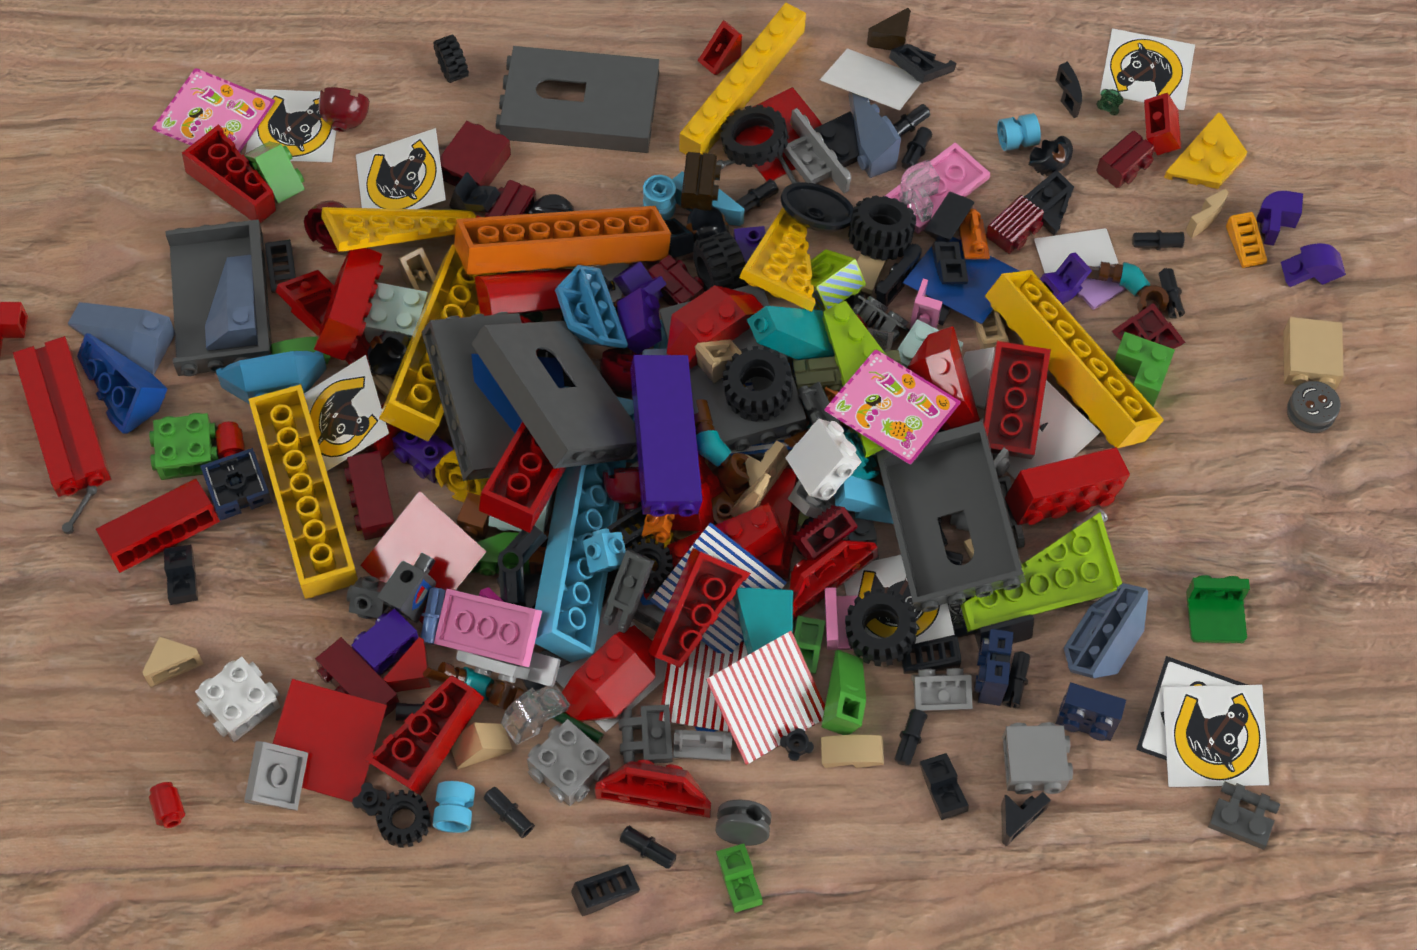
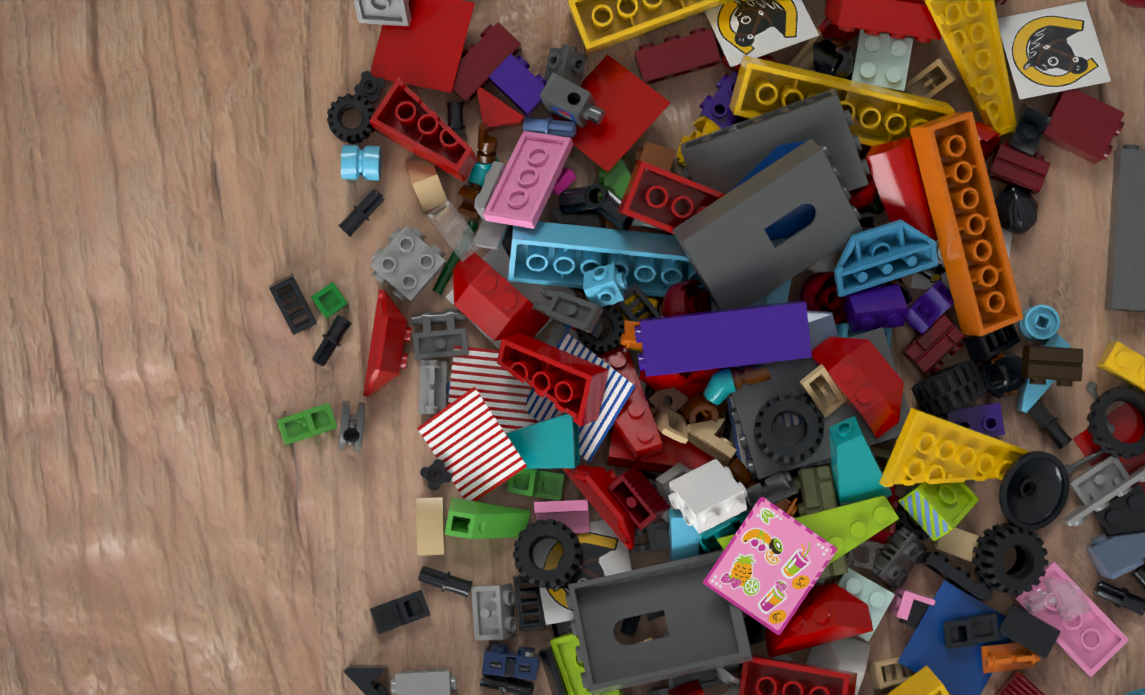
camera: 90 degrees right, 25 degrees up
(603, 850) = (329, 300): none -> green tile

